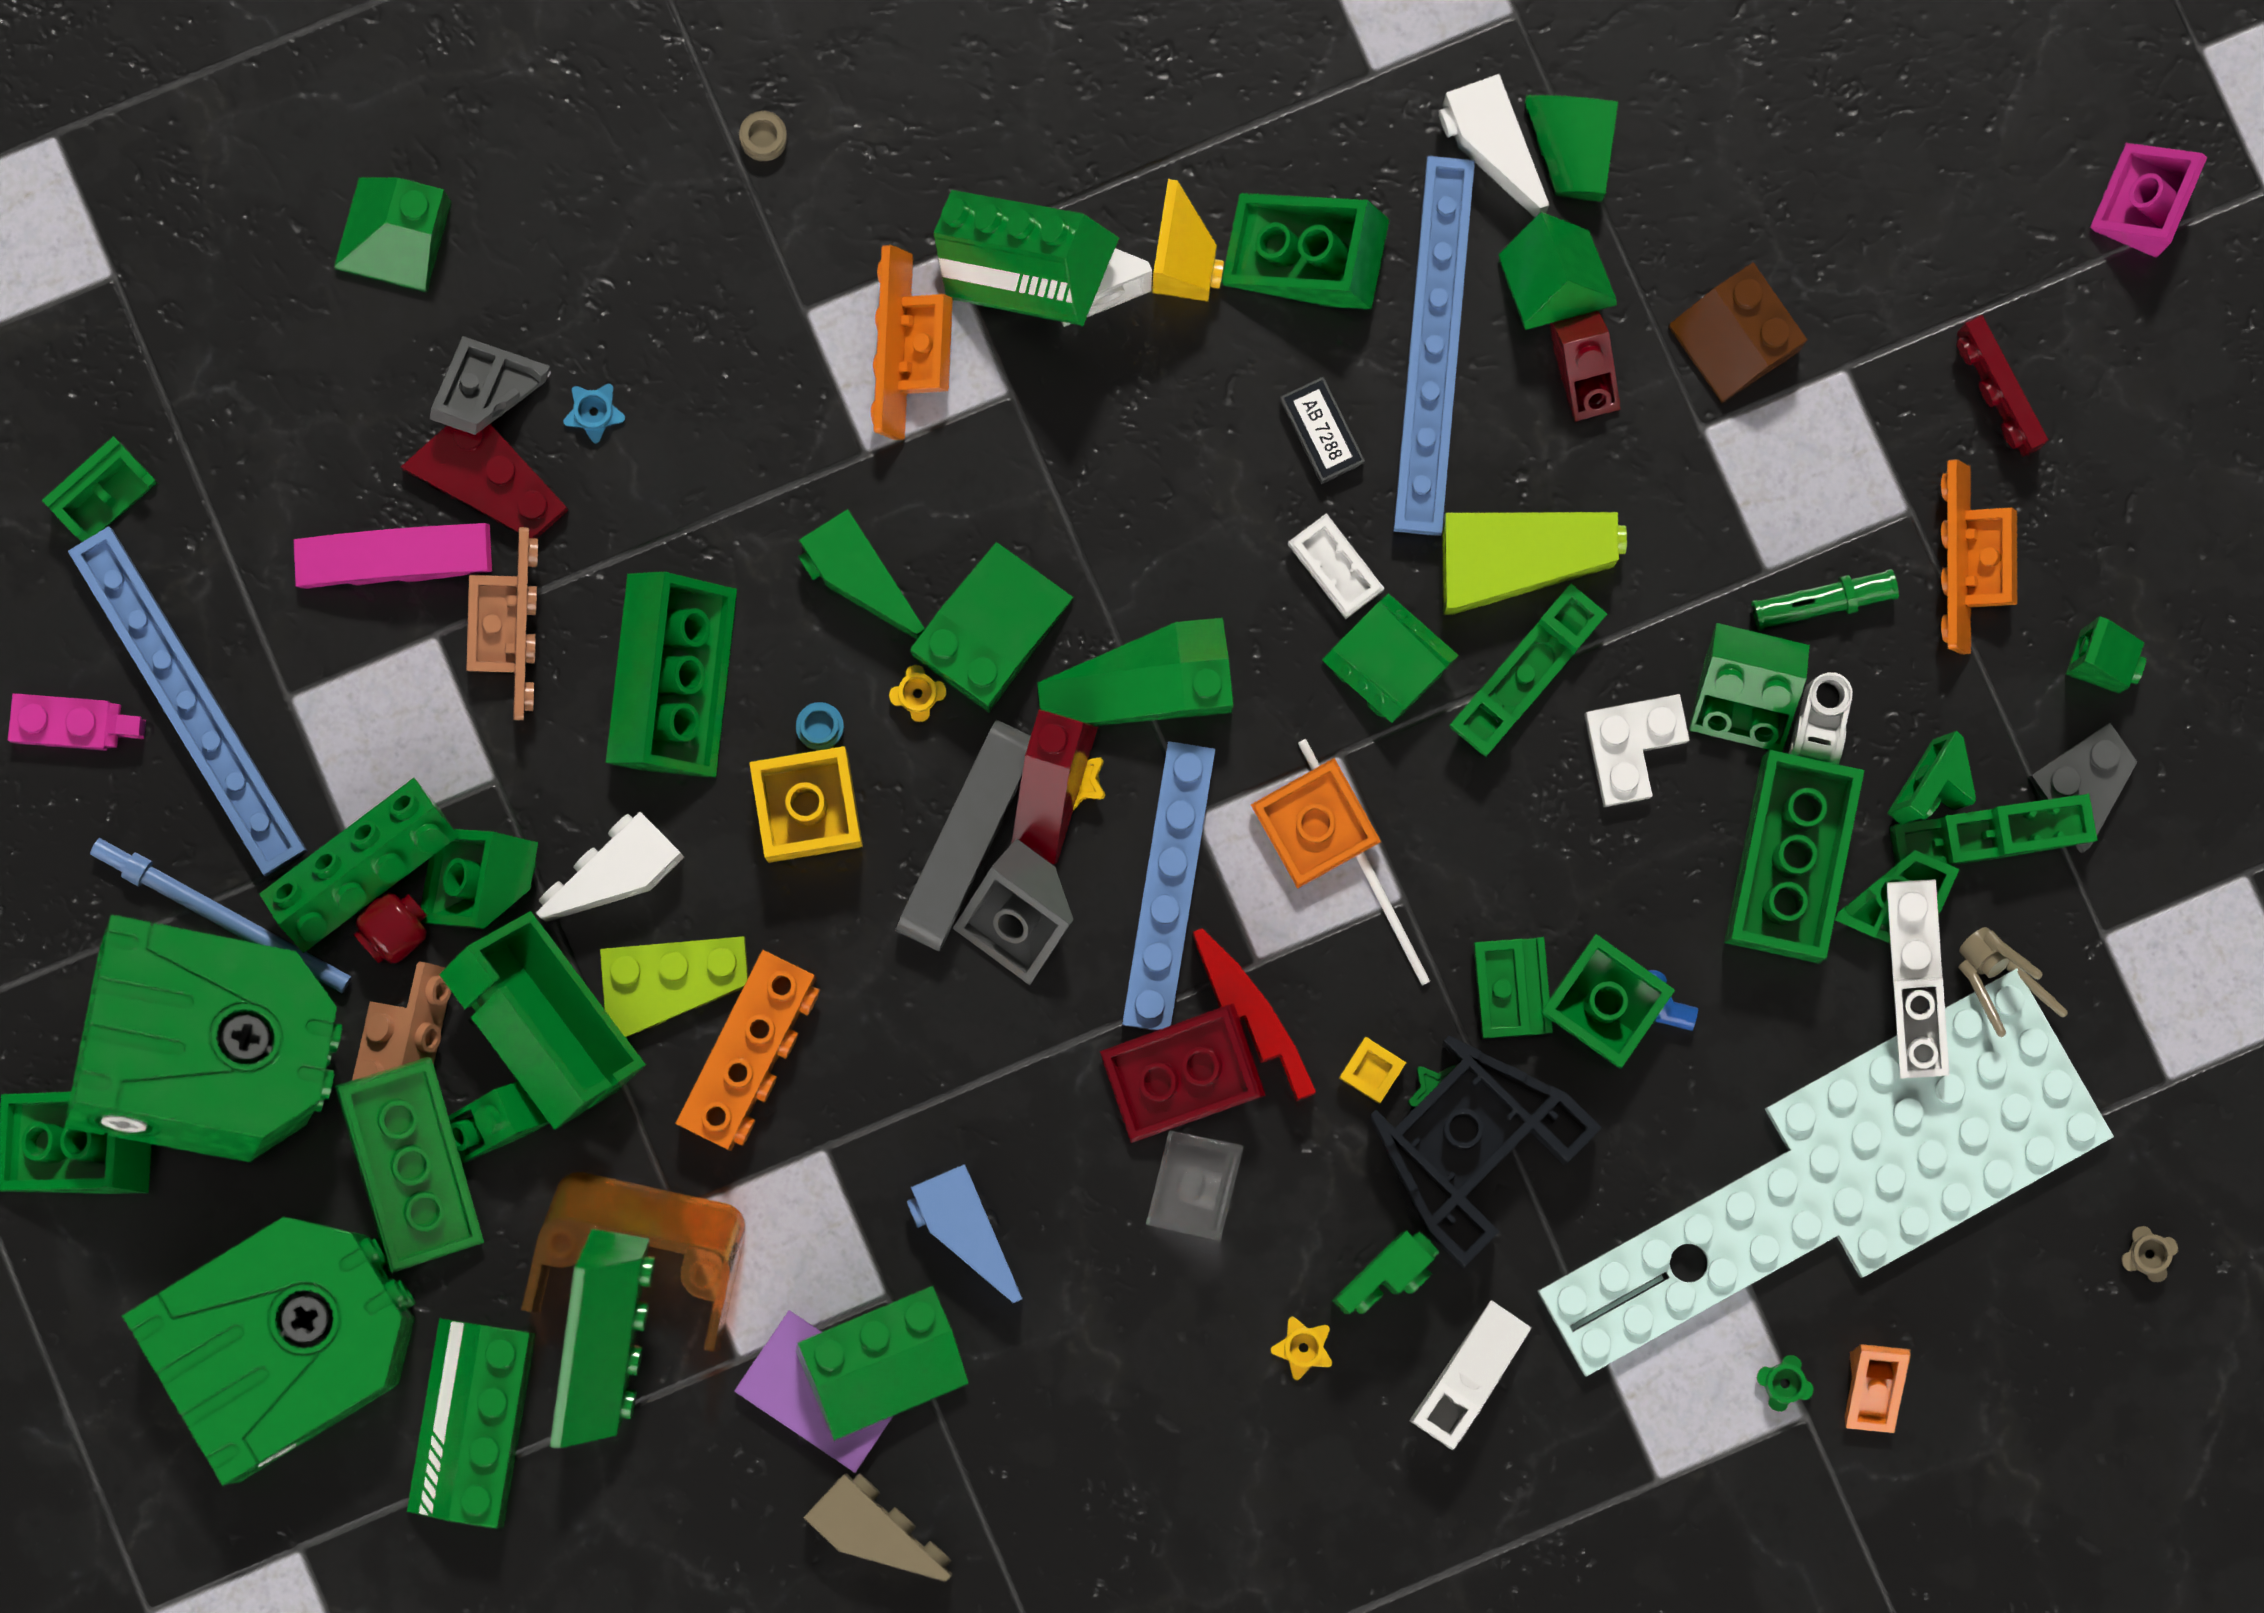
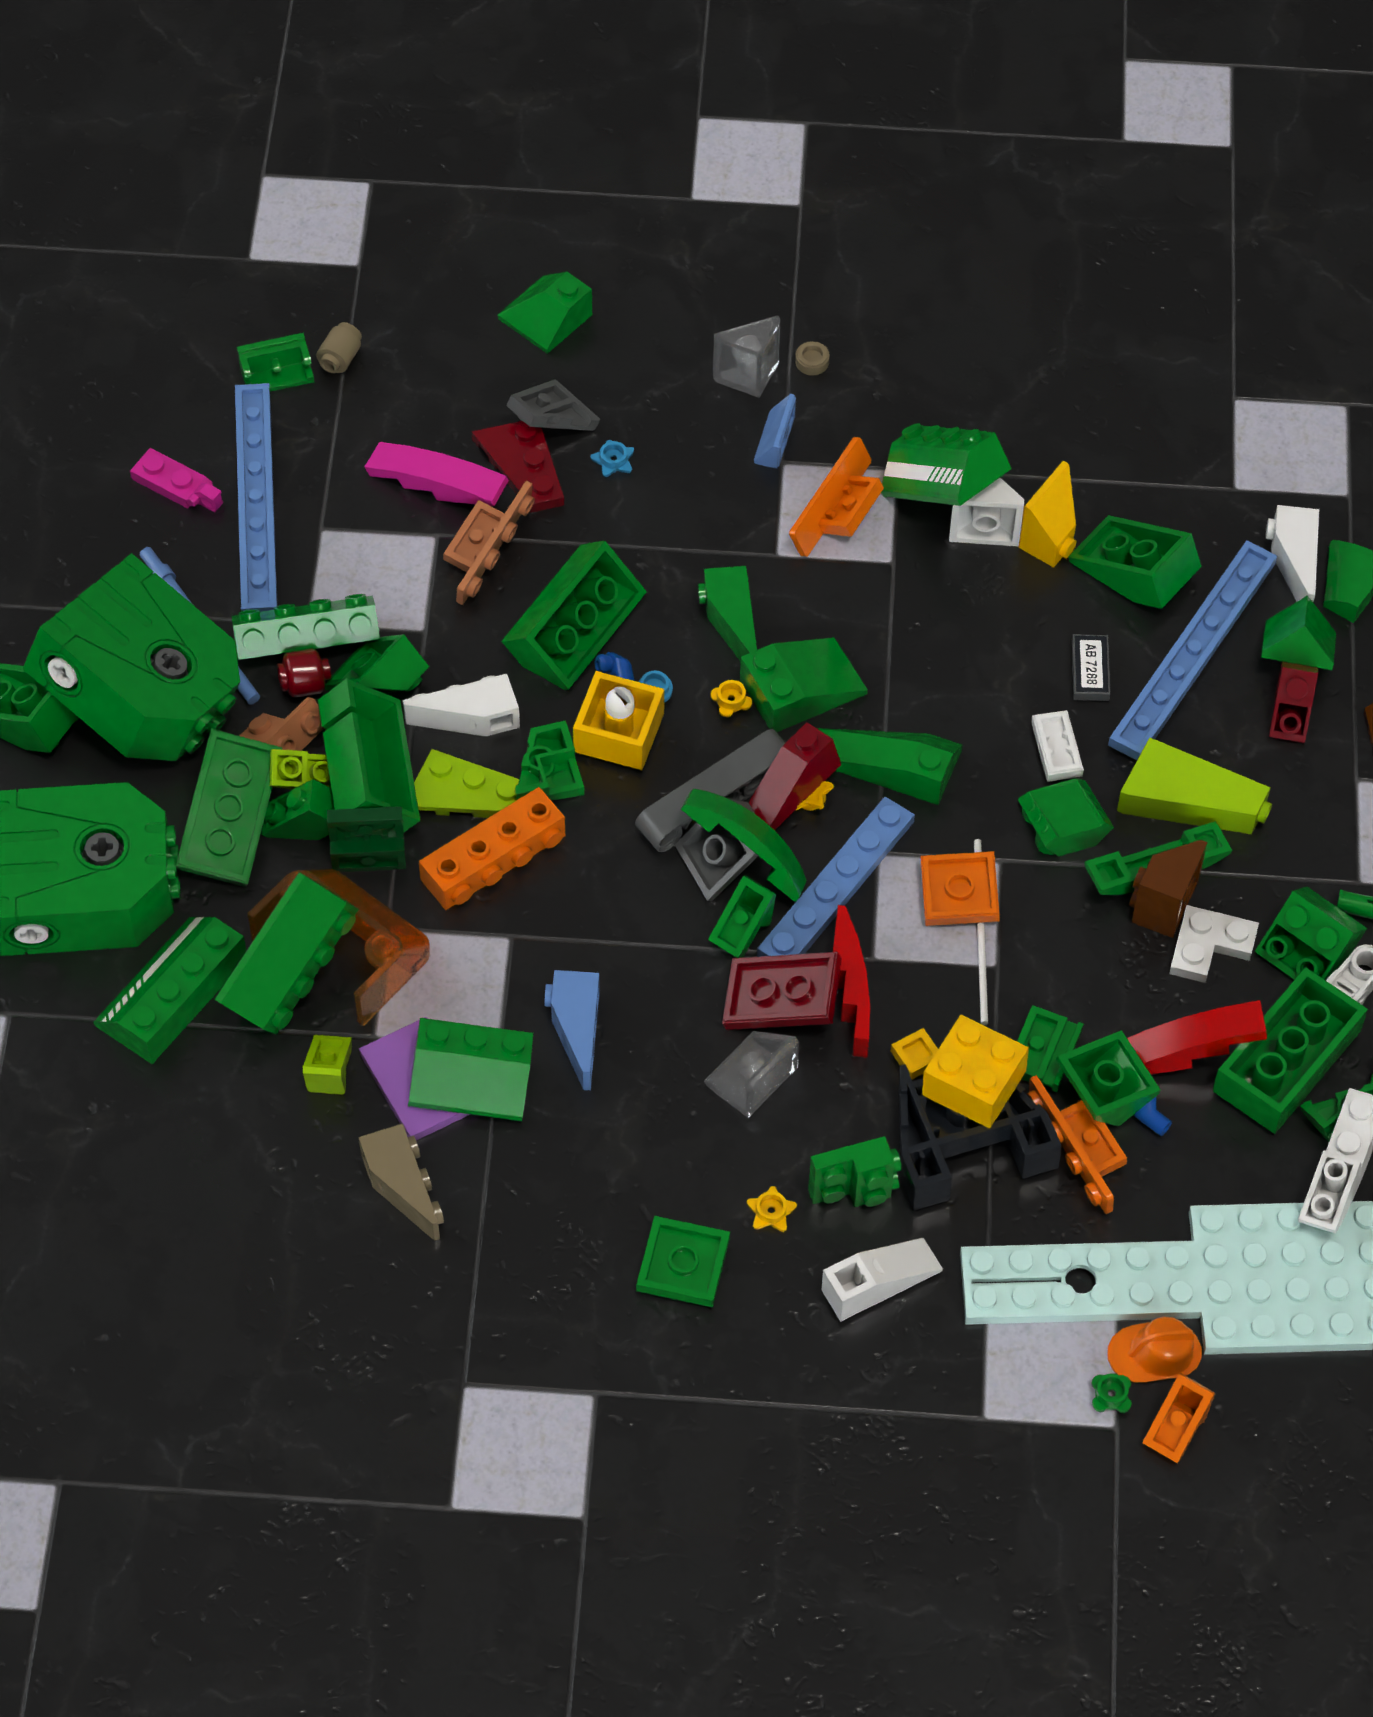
camera: 30 degrees right, 25 degrees down
(166, 426) = (339, 348): none -> dark tan brick
(464, 1073) = (296, 767): none -> lime slope
(598, 1126) = (366, 839): none -> dark green slope
(692, 191) = (747, 355): none -> clear slope
(709, 1429) = (326, 1064): none -> lime slope
(753, 903) = (550, 763): none -> green slope
(766, 721) = (614, 665): none -> blue arm
(775, 277) = (776, 433): none -> medium blue slope
(801, 807) = (616, 707): none -> white hinge
(1045, 895) = (710, 809): none -> green slope
(1089, 1002) = (743, 916): none -> green slope
(1242, 1469) = (683, 1261): none -> green plate
(1467, 1092) = (975, 1071): none -> yellow brick
(1563, 714) = (1167, 887): none -> reddish brown slope
(1625, 1094) = (1087, 1142): none -> orange bracket
(1684, 898) = (1198, 1036): none -> red slope
(1806, 1304) = (1154, 1350): none -> orange piece

